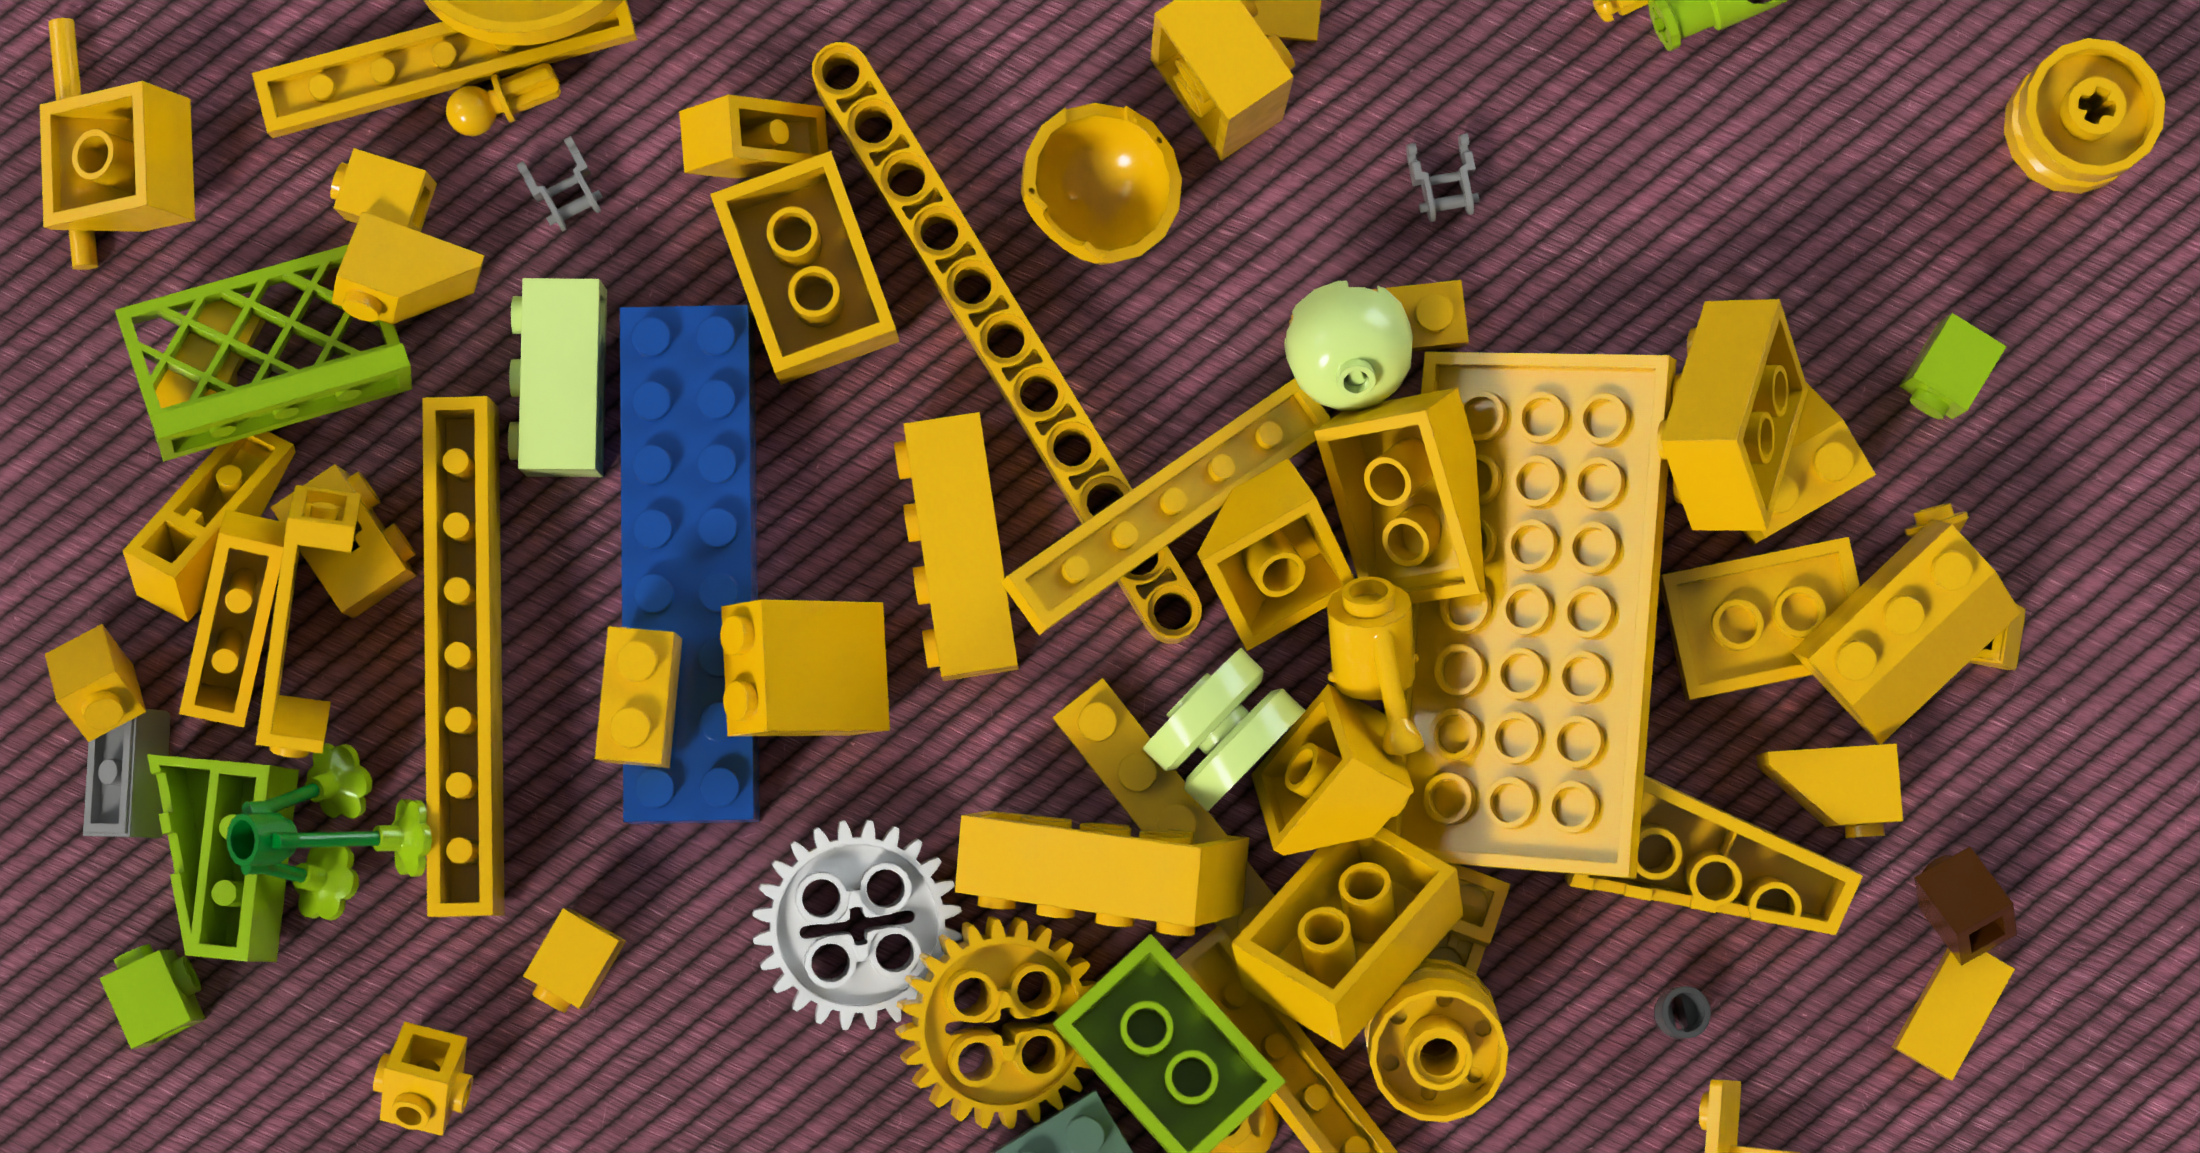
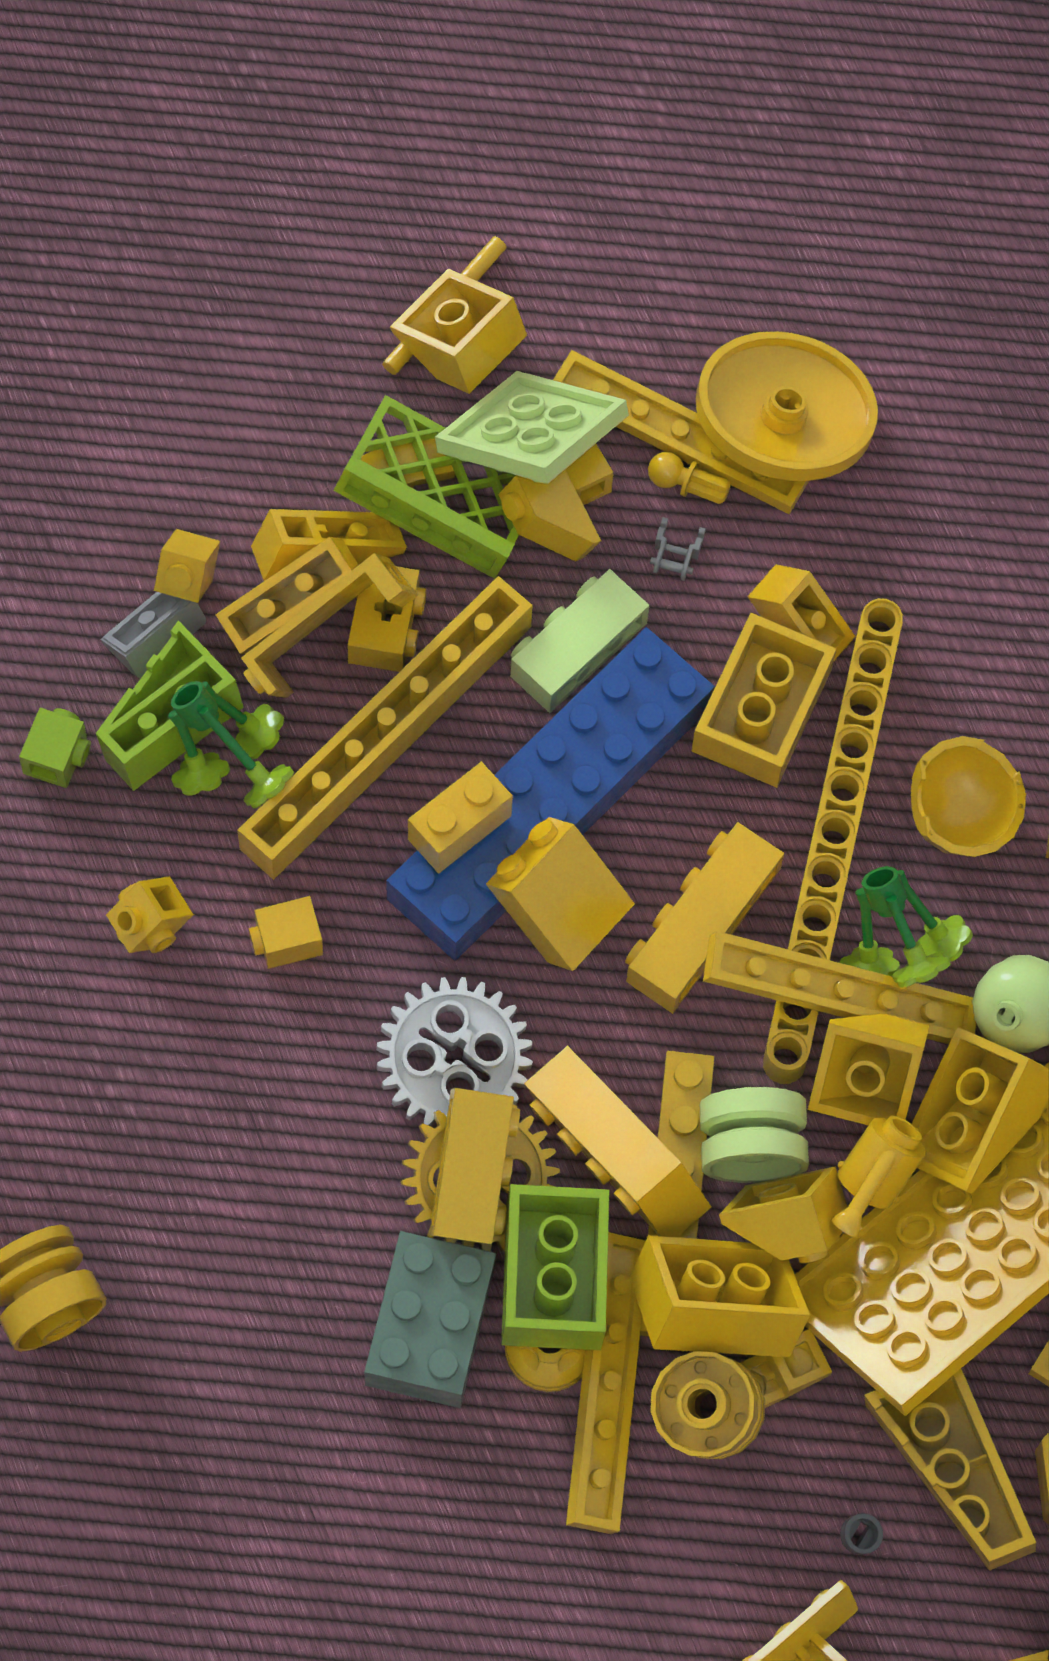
camera: 45 degrees right, 15 degrees down
(299, 204) = (531, 427): none -> yellowish green plate
(997, 1034) = (474, 1166): none -> yellow brick
(1208, 350) = (943, 941): none -> plant

